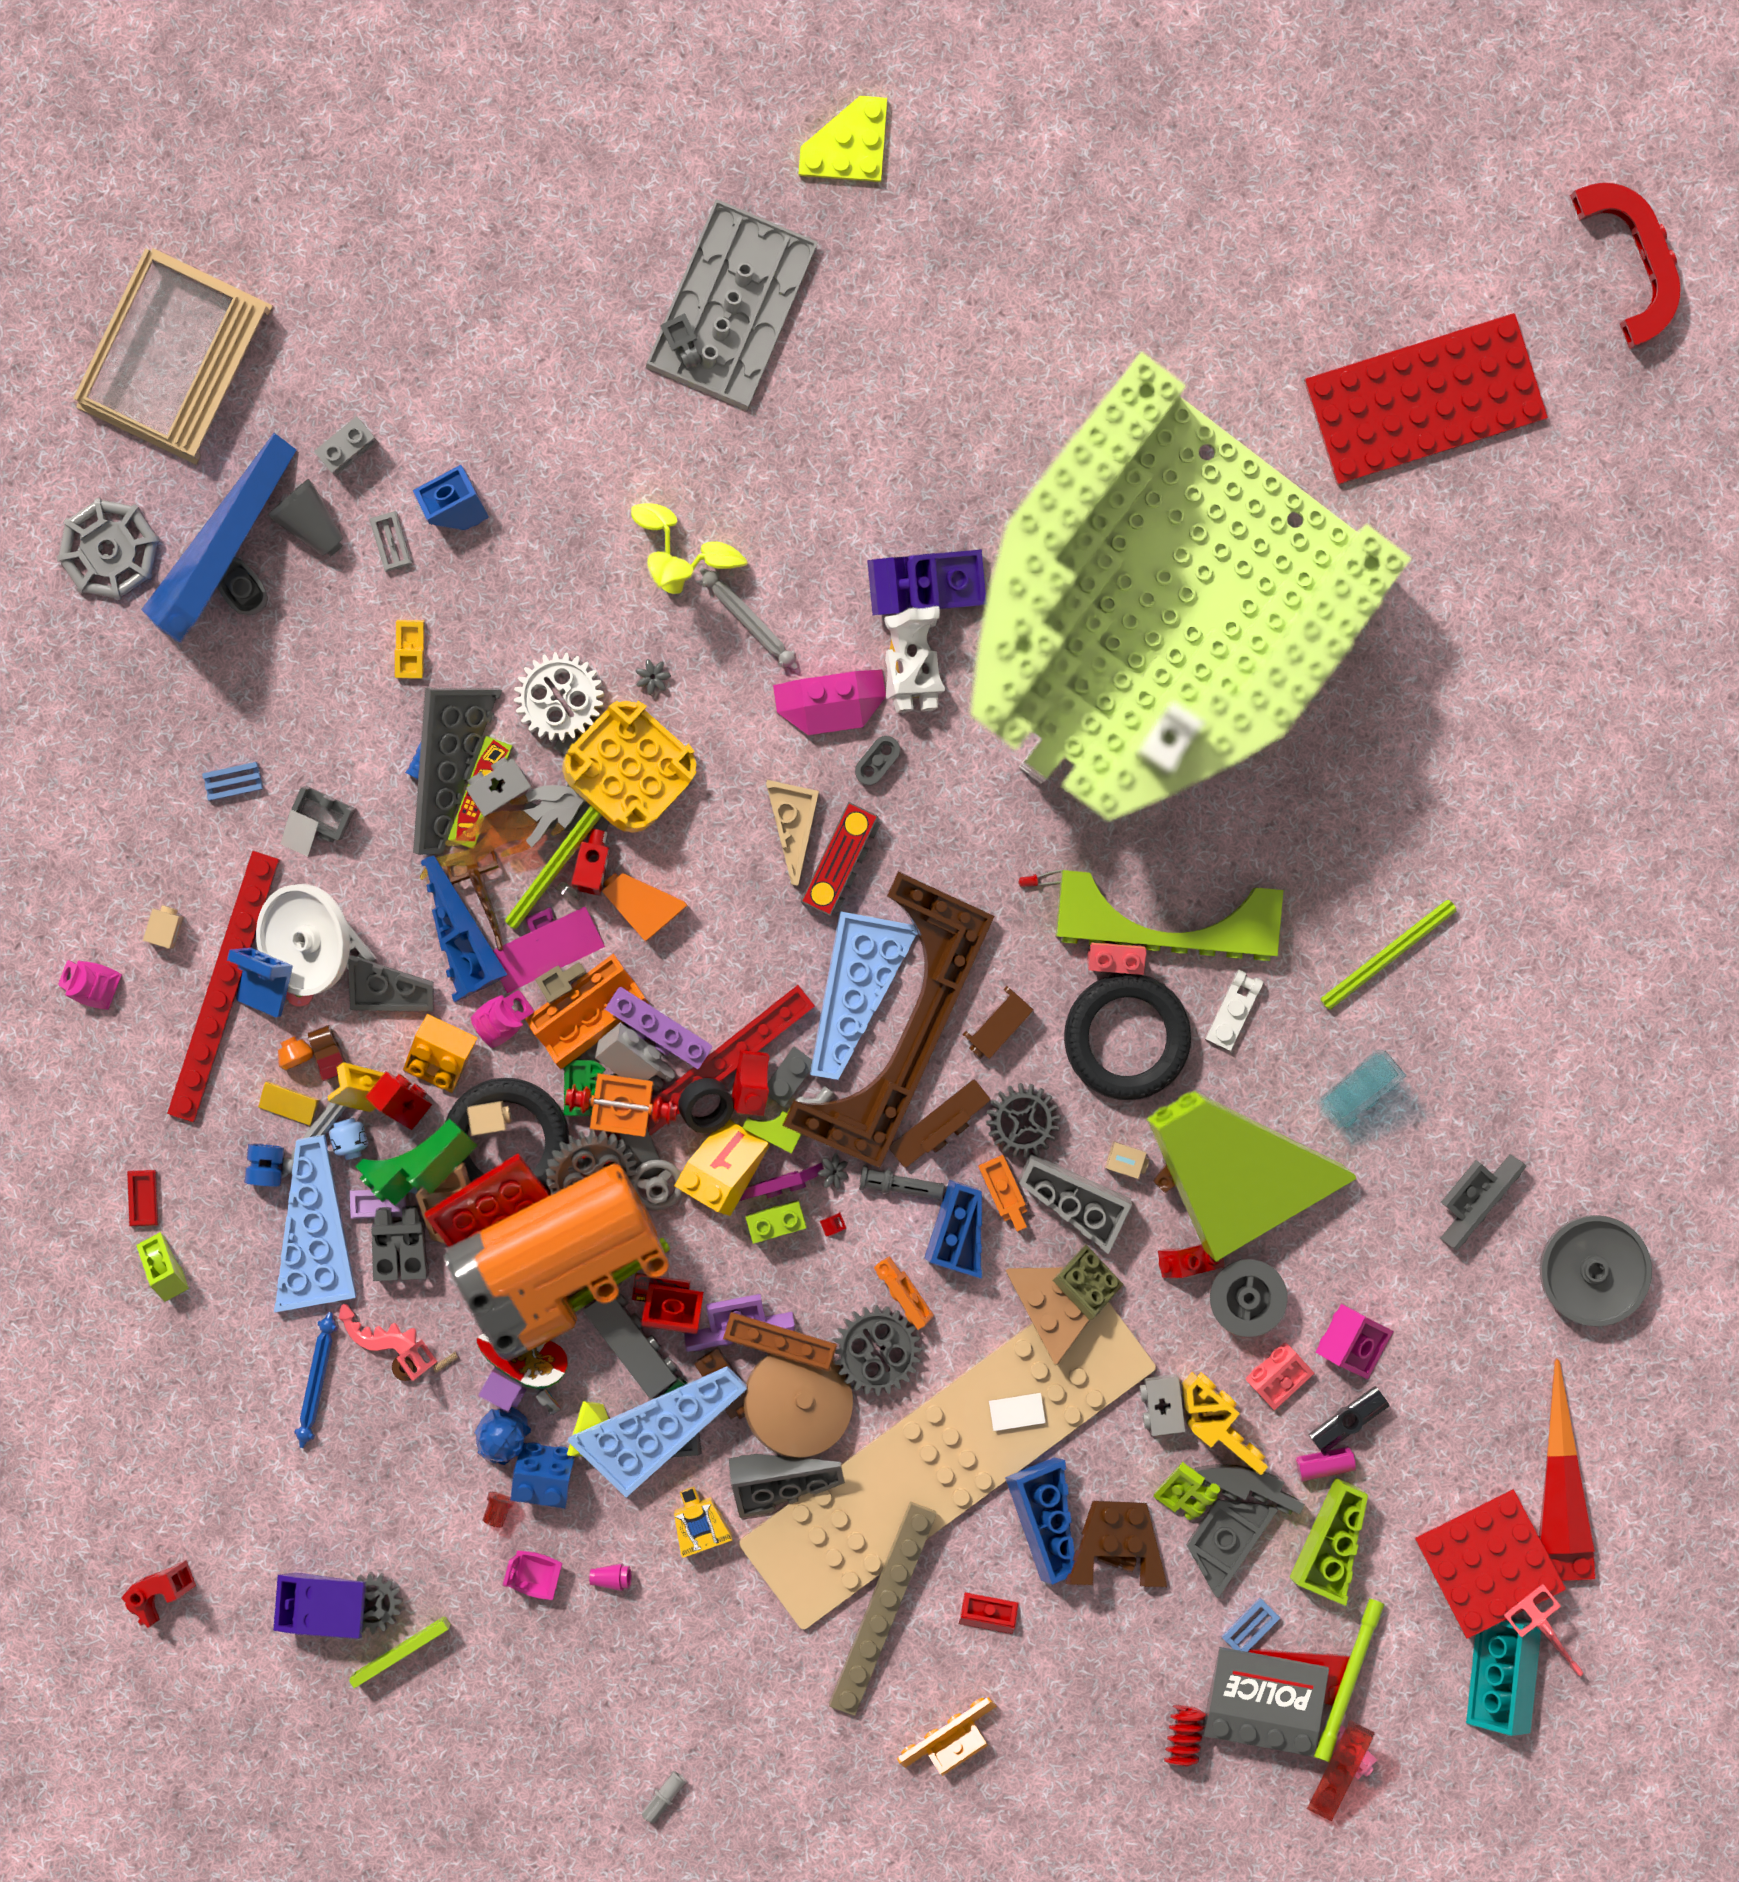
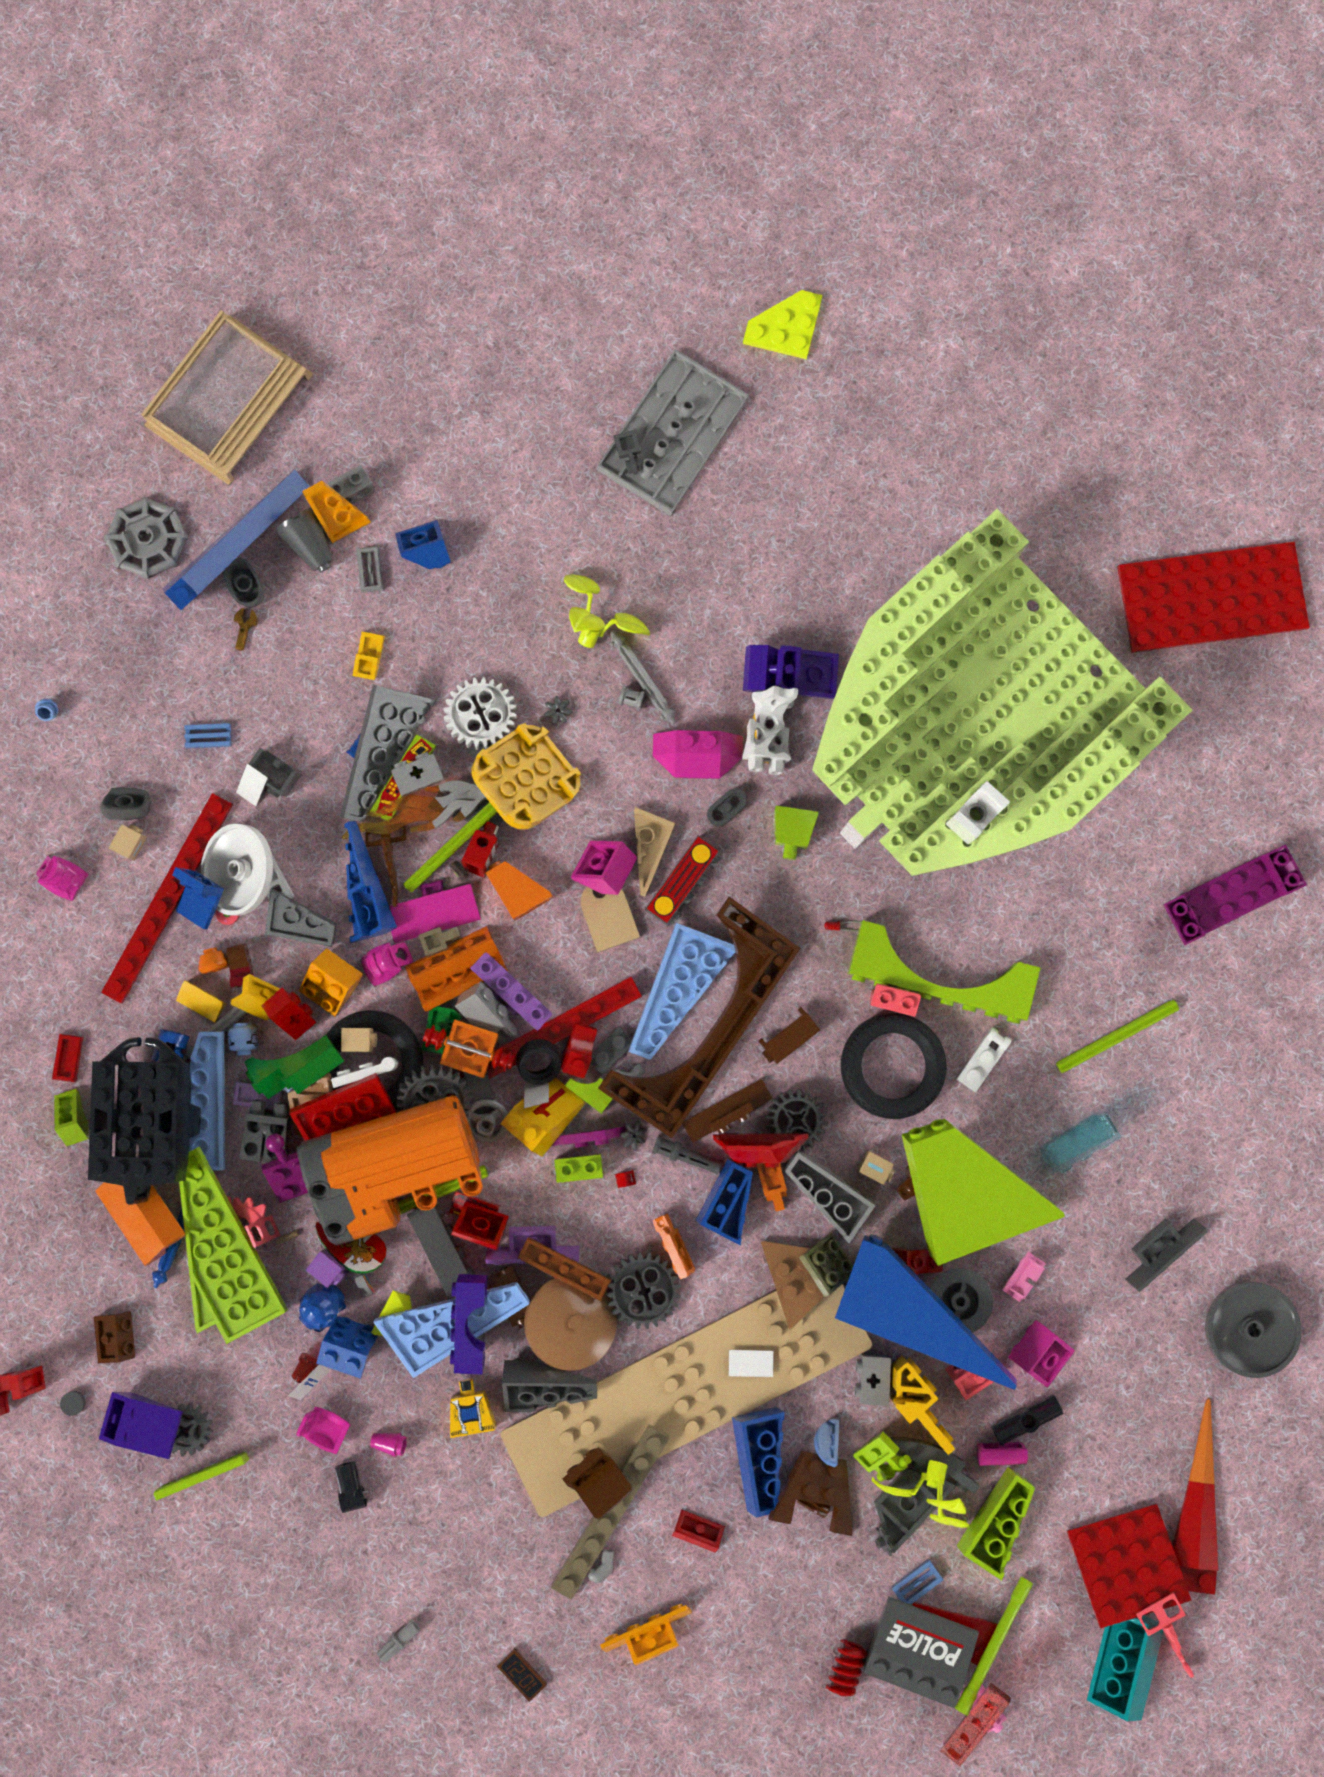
camera: 10 degrees right, 5 degrees down
(30, 783) = (46, 709): none -> medium blue plate
(151, 882) = (125, 804): none -> dark grey piece
(231, 1596) = (72, 1403): none -> dark grey tile
(250, 640) = (244, 627): none -> pearl gold bar
(265, 1513) = (114, 1337): none -> reddish brown bracket
(267, 1363) = (145, 1225): none -> orange slope
(271, 1218) = (166, 1121): none -> black piece
(336, 480) = (334, 511): none -> light orange wing
(380, 1410) = (224, 1268): none -> lime wing
(433, 1288) = (285, 1172): none -> magenta plate
(504, 1152) = (346, 1077): none -> white plate
(505, 1523) = (309, 1382): none -> white sticker
(576, 1637) = (350, 1489): none -> black piece
(686, 1455) = (468, 1351): none -> dark purple arch
(709, 1144) = (535, 1094): none -> white sticker
(739, 646) = (639, 696): none -> light grey bush
(743, 858) = (604, 866): none -> dark pink slope
(758, 917) = (608, 919): none -> tan tile
(813, 1809) = (522, 1674): none -> tile
(863, 1577) = (598, 1482): none -> reddish brown bracket
(887, 1675) = (599, 1574): none -> light grey arm
(962, 774) = (793, 829): none -> lime torso
(985, 1160) = (760, 1147): none -> red wedge
(1120, 1485) = (827, 1441): none -> medium blue tile
(1176, 1315) = (897, 1305): none -> blue slope
(1203, 1586) = (883, 1541): none -> dark grey plant
(1251, 1505) = (935, 1478): none -> neon yellow plant
(1324, 1245) = (1028, 1268): none -> bright pink hinge
(1500, 761) = (1234, 894): none -> magenta slope

